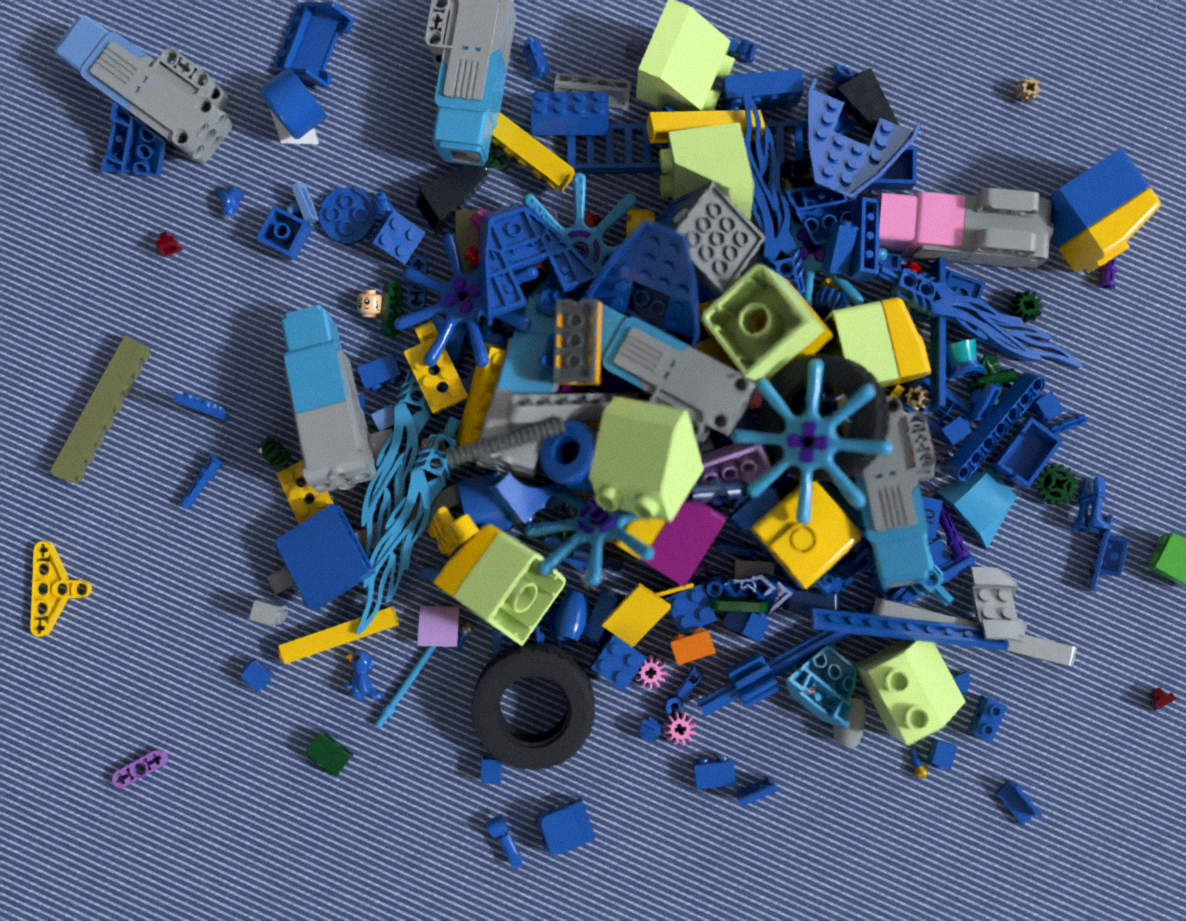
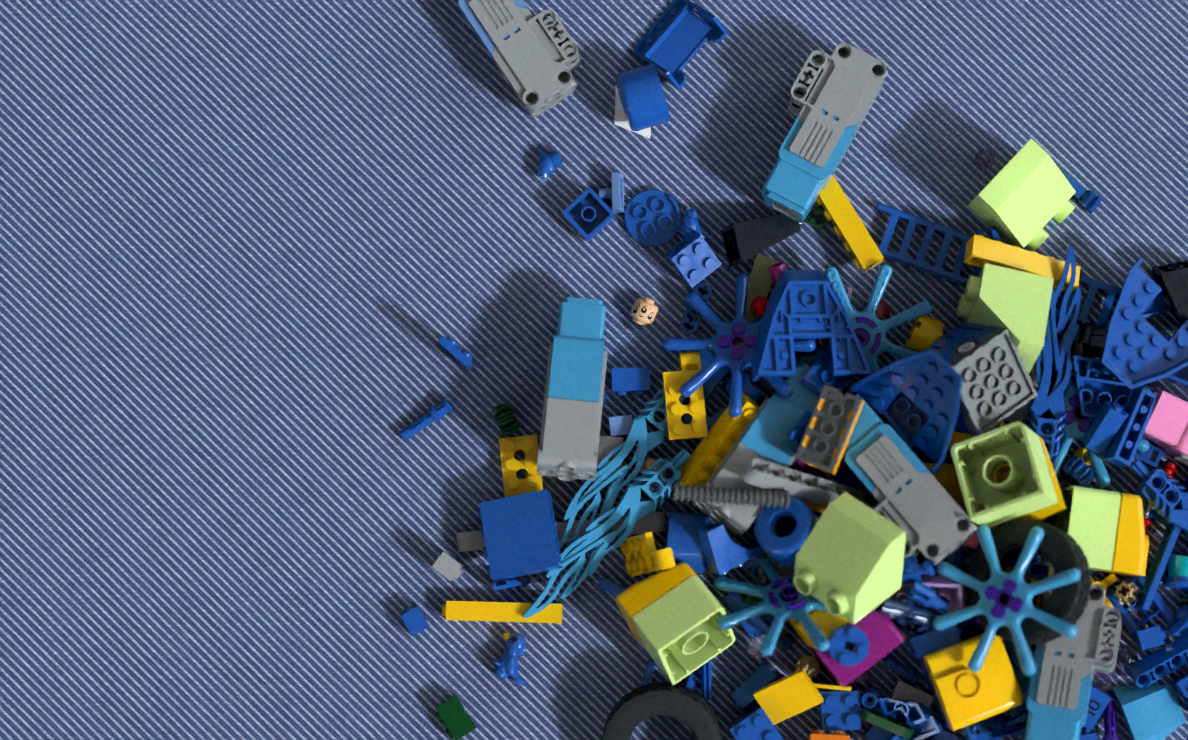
camera: 20 degrees right, 0 degrees up
(52, 598) = (256, 459): yellow beam -> none
(100, 410) = (358, 317): olive brick -> none
(131, 768) = (261, 673): medium lavender beam -> none
(133, 146) = (477, 81): blue wedge -> none
(167, 244) = (474, 184): dark red tile -> none
(333, 607) = (510, 583): none -> blue tile
(385, 314) = (671, 312): dark green beam -> none
(389, 708) = (524, 698): dark azure bar -> none
(438, 626) = (599, 638): lavender slope -> none
(465, 630) = (623, 651): piece -> none
(535, 59) = (886, 134): blue hinge -> none
(570, 113) = (899, 201): blue brick -> none
(571, 616) = (726, 676): blue piece -> none
(574, 83) = (927, 186): light grey fence -> none
(646, 577) = (810, 666): none -> tan gear
(685, 544) = (858, 651): none -> blue brick
(709, 448) = (913, 569): none -> blue brick
(732, 469) = (927, 597): none -> blue arm
(766, 89) = (1090, 247): blue brick -> none
(840, 77) = (1170, 259): blue piece -> none

